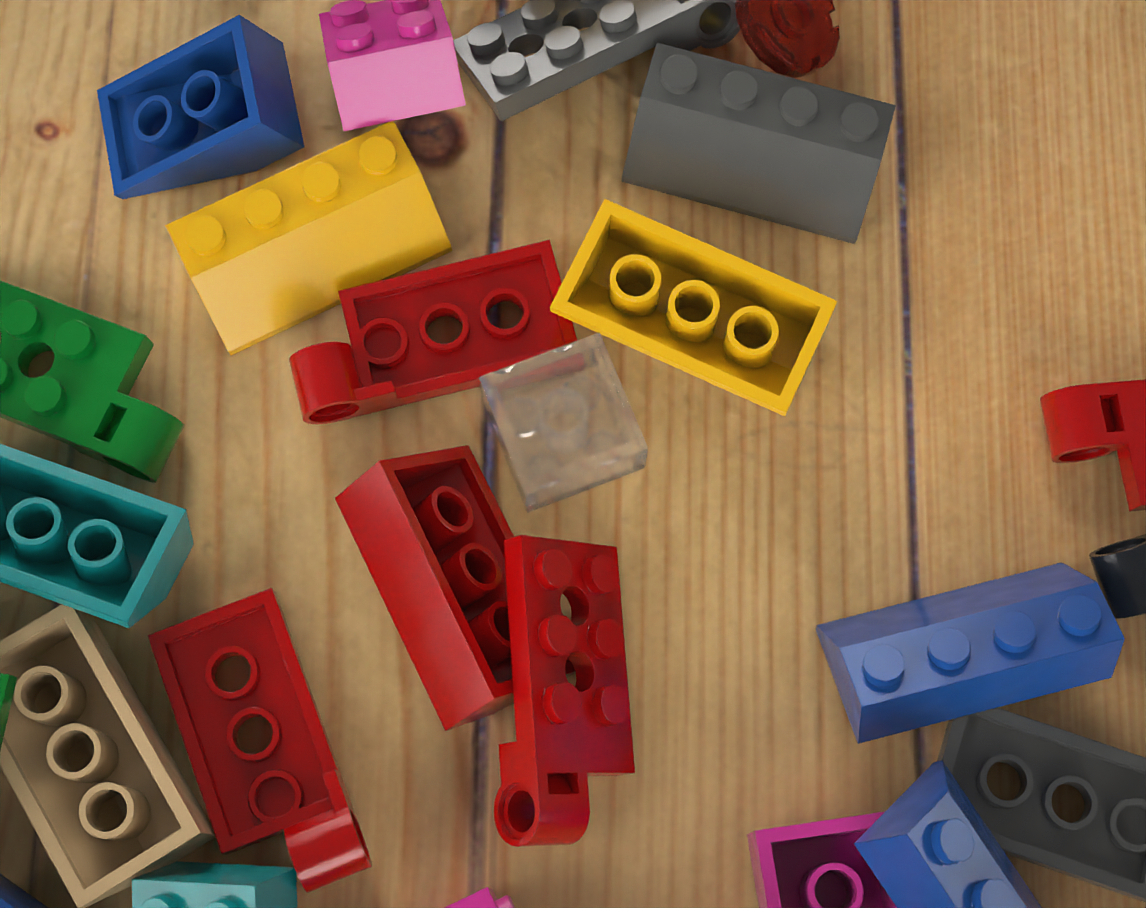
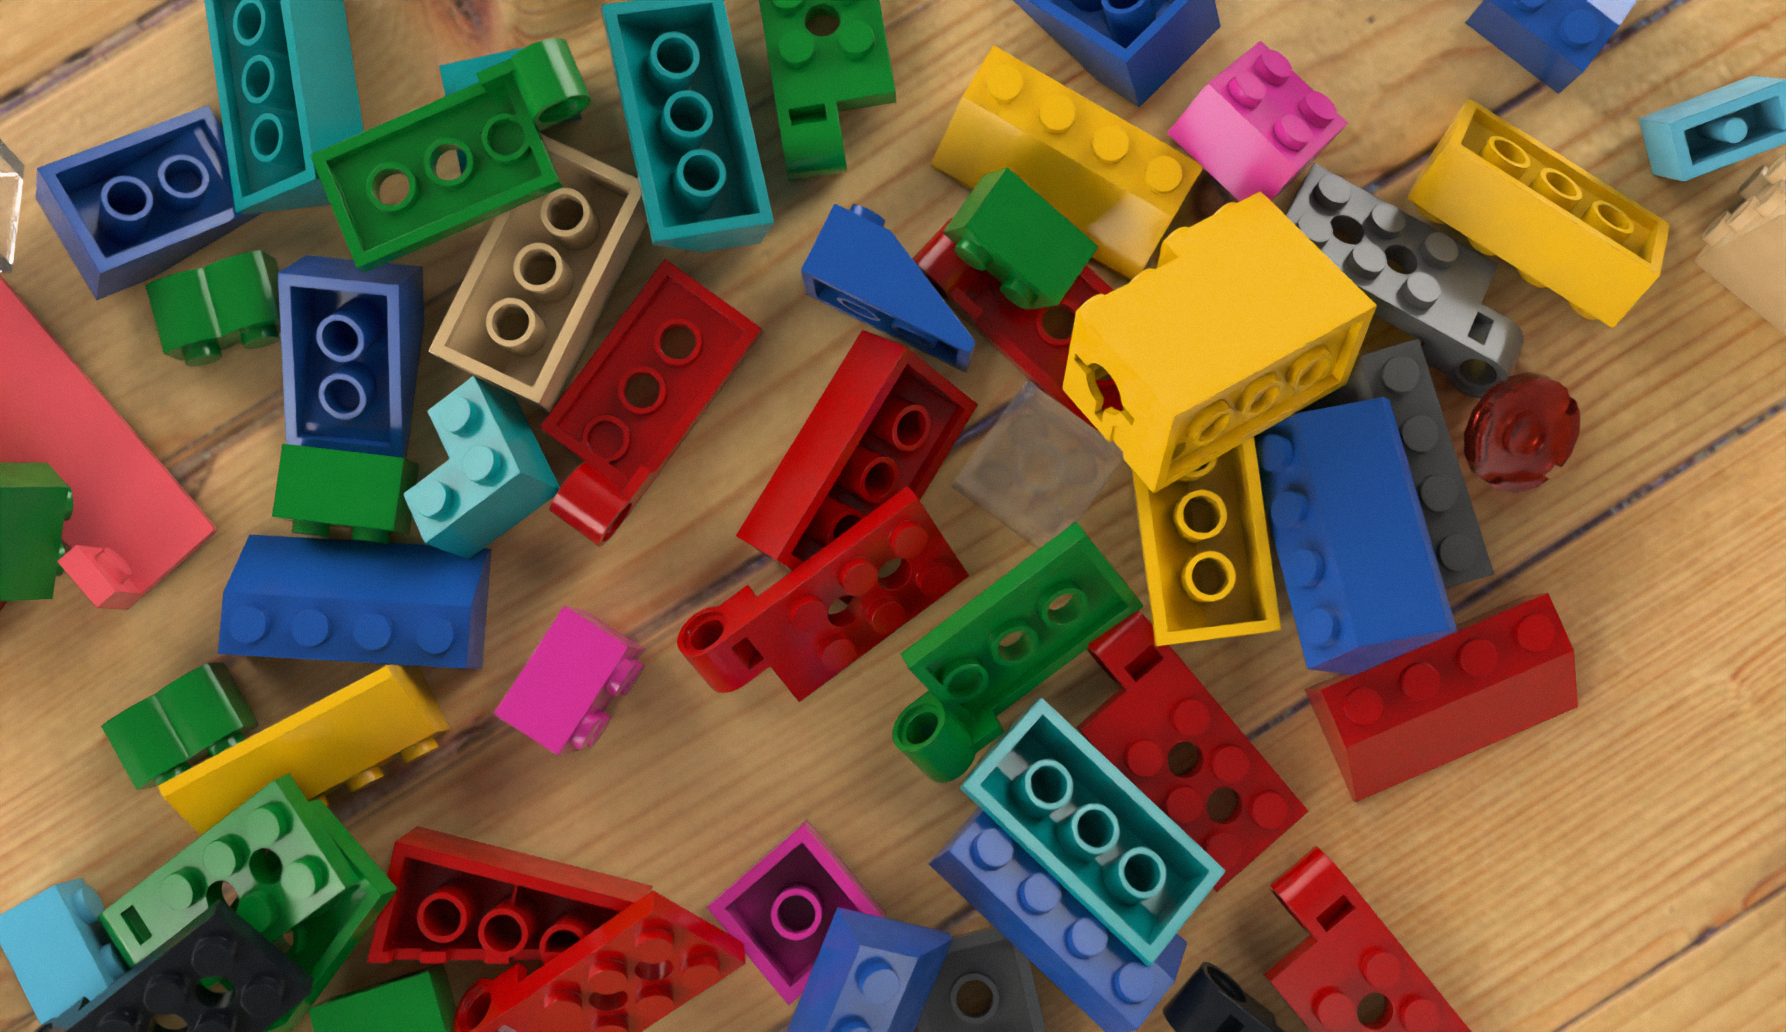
camera: 60 degrees right, 10 degrees up
(310, 451) = (874, 279): none -> blue slope
(351, 306) = (1019, 240): none -> green brick
(552, 194) = (1216, 340): none -> yellow piece
(714, 589) = (977, 678): none -> green hinge
(795, 192) = (1351, 537): none -> blue slope
(842, 470) = (1168, 705): none -> red hinge
(914, 571) = (1092, 830): none -> teal slope
(971, 213) = (1448, 696): none -> red slope

